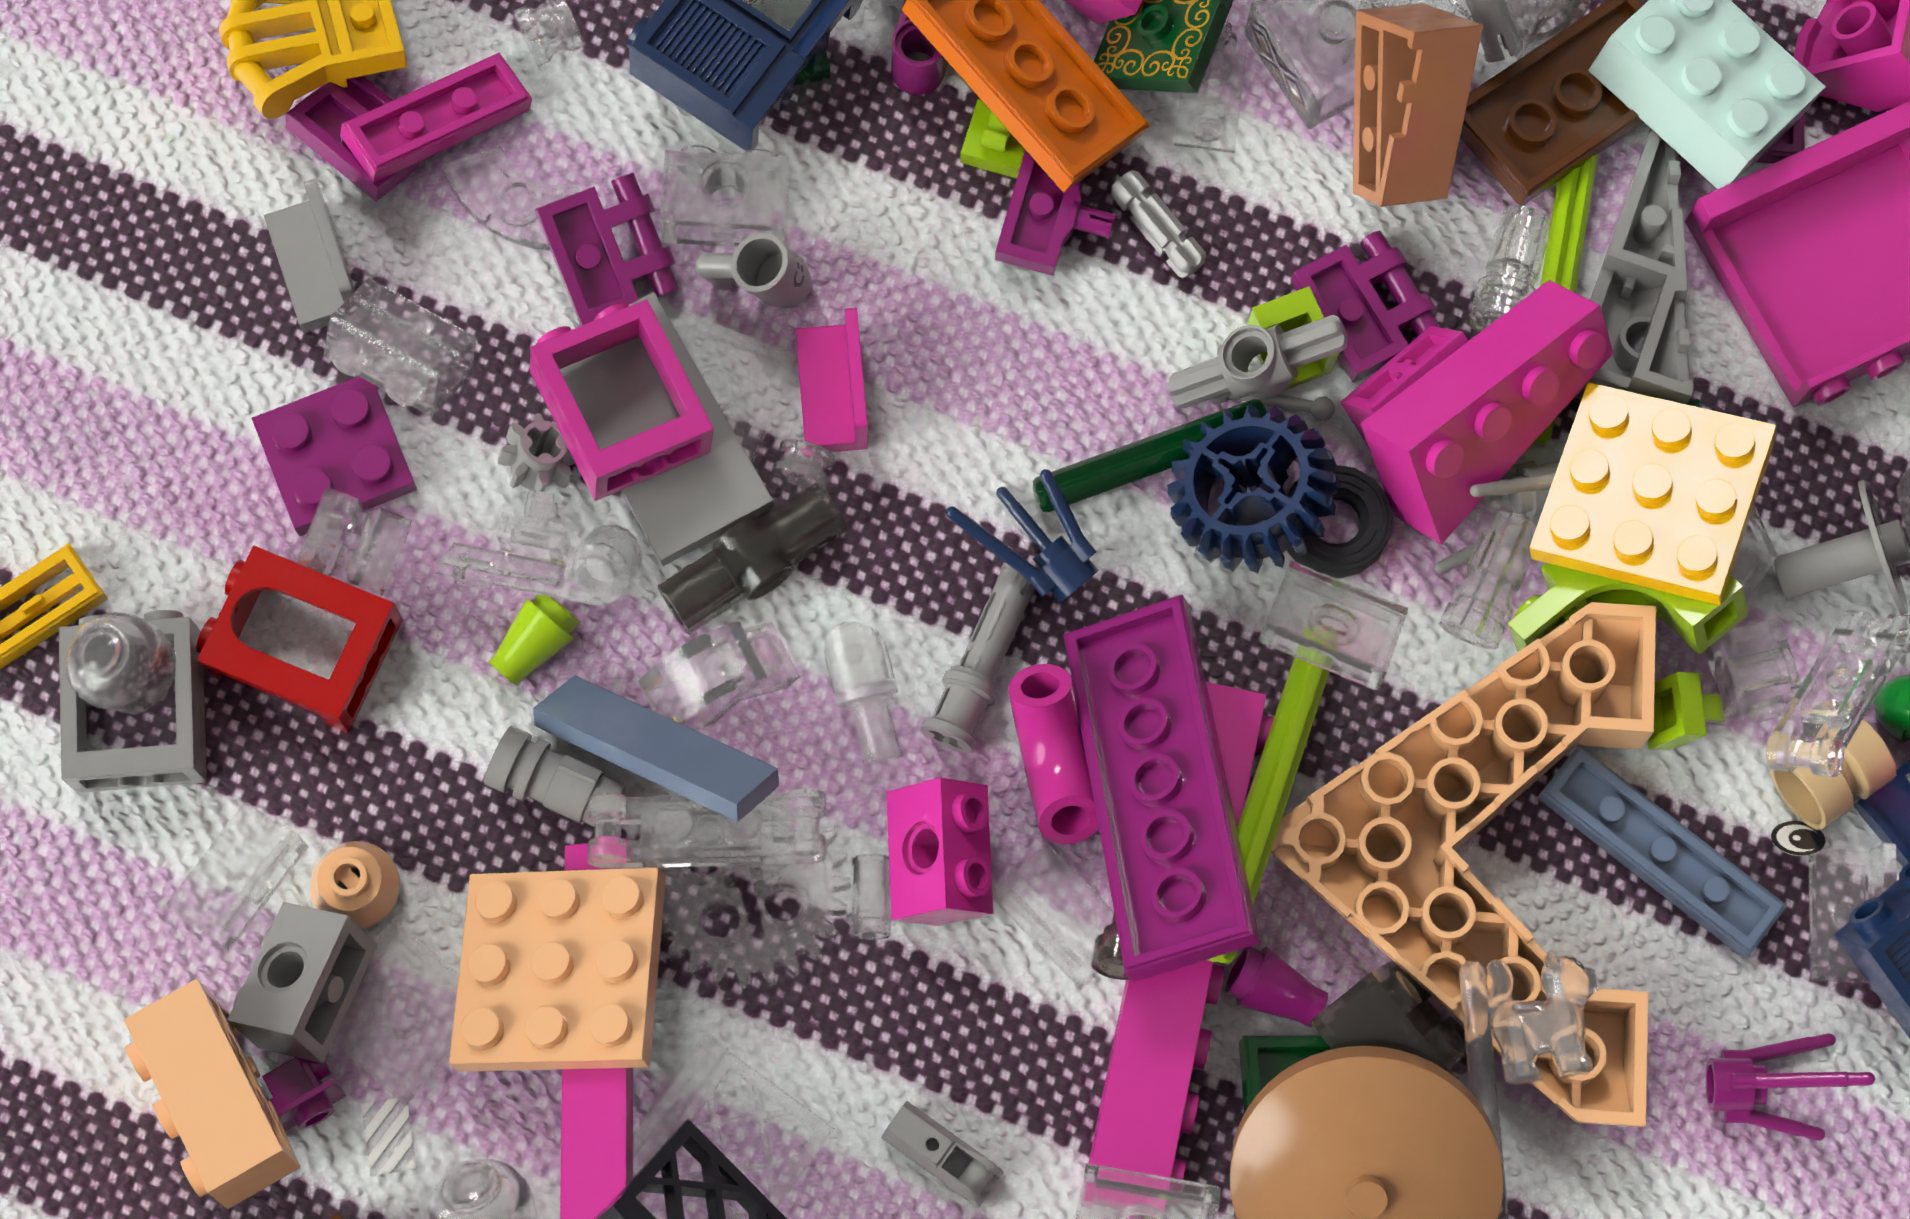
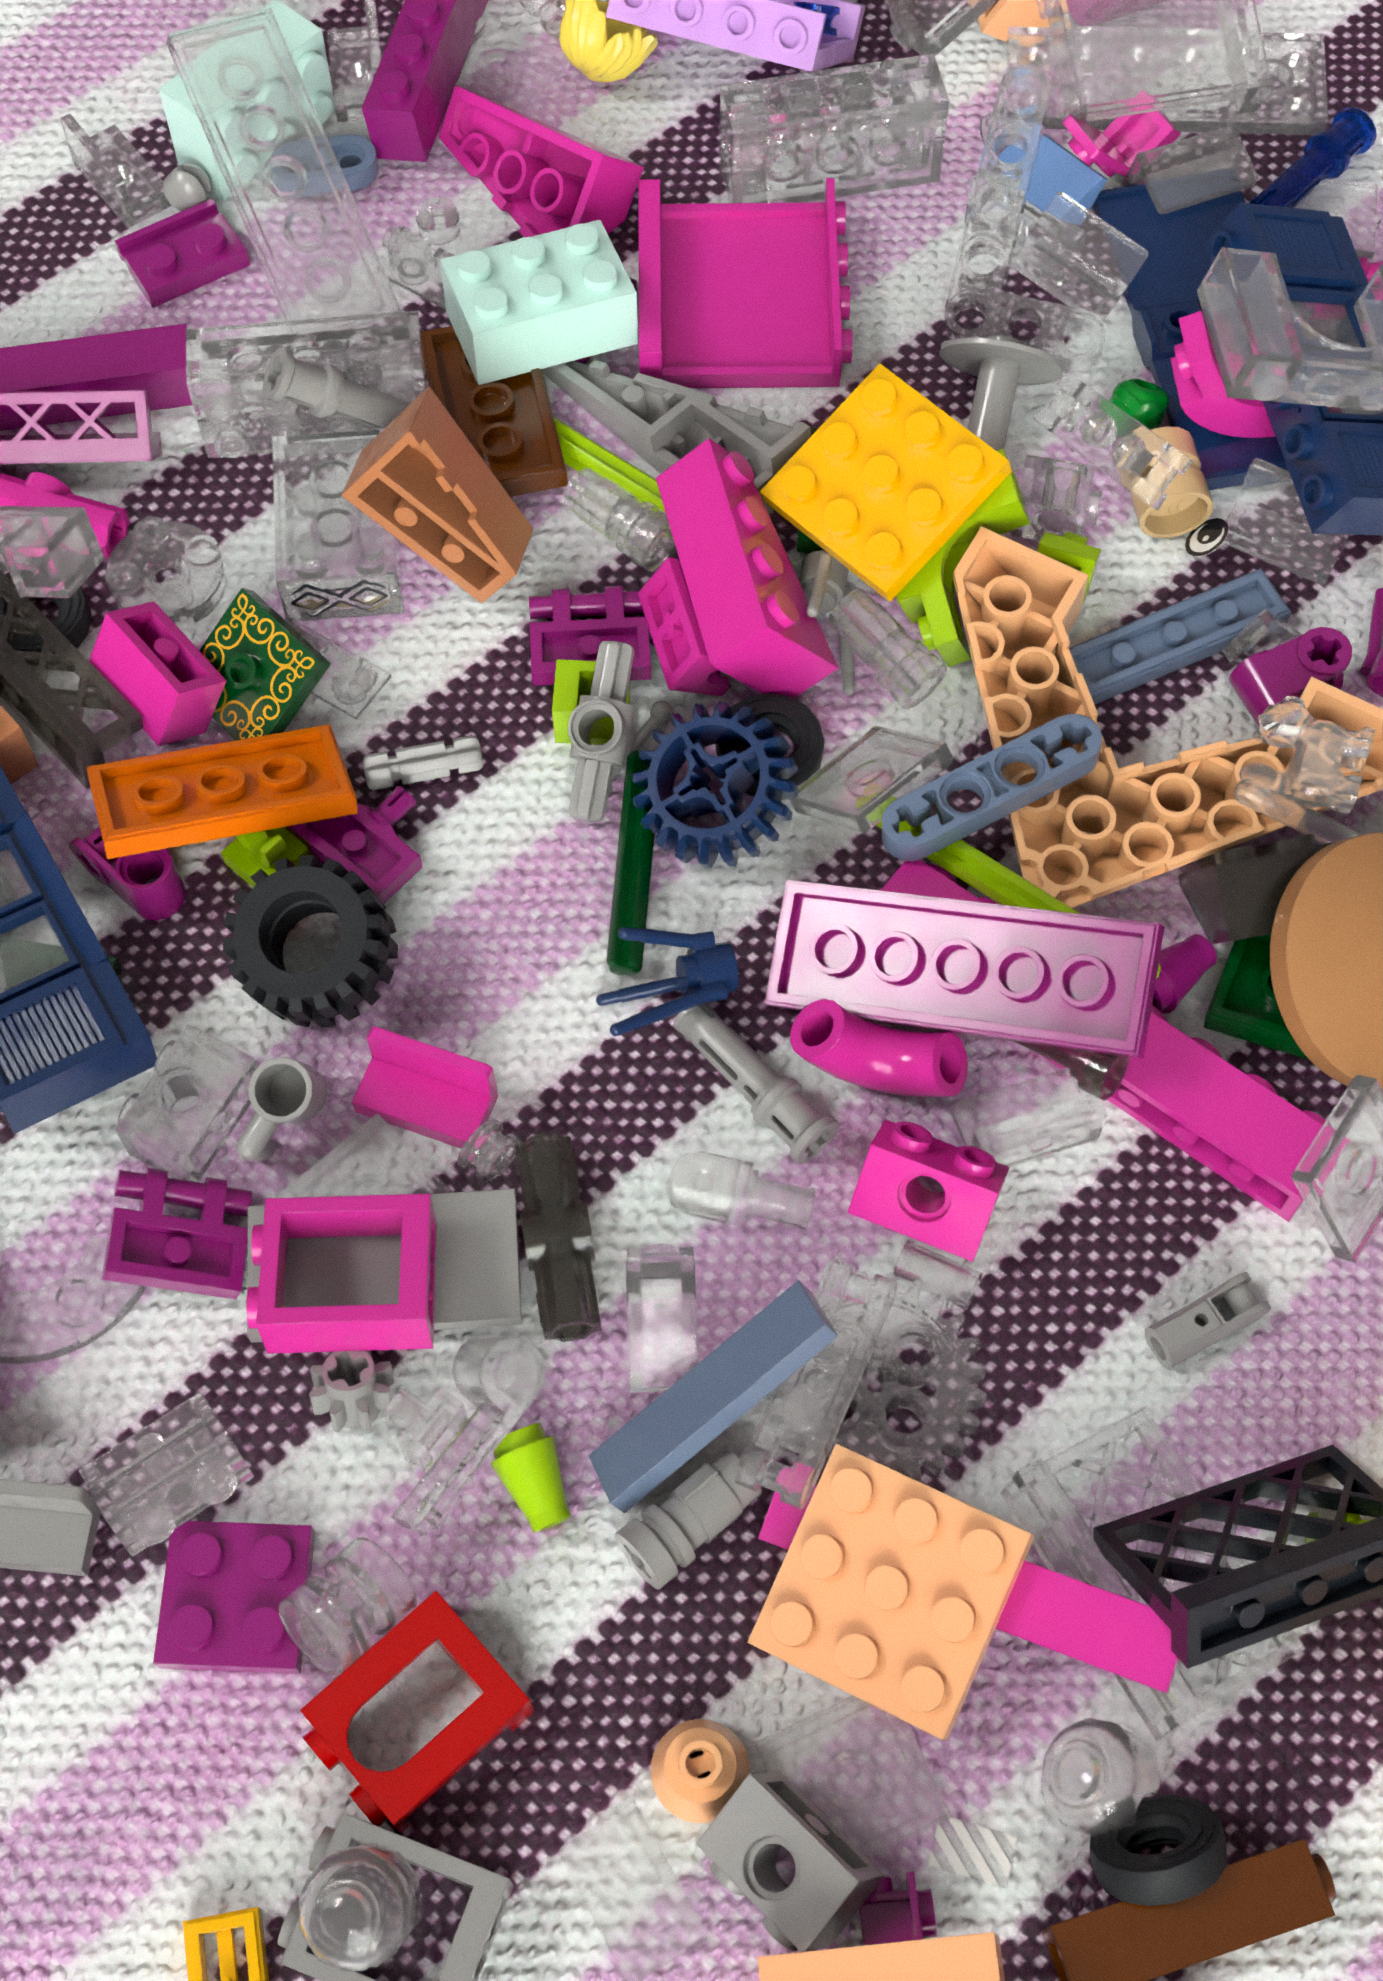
camera: 60 degrees left, 10 degrees down
(891, 181) = (276, 907): none -> black tyre
(1357, 743) = (997, 794): none -> sand blue beam
(1656, 964) = (1287, 668): none -> magenta piece
(1697, 943) = (1261, 634): none -> clear tile

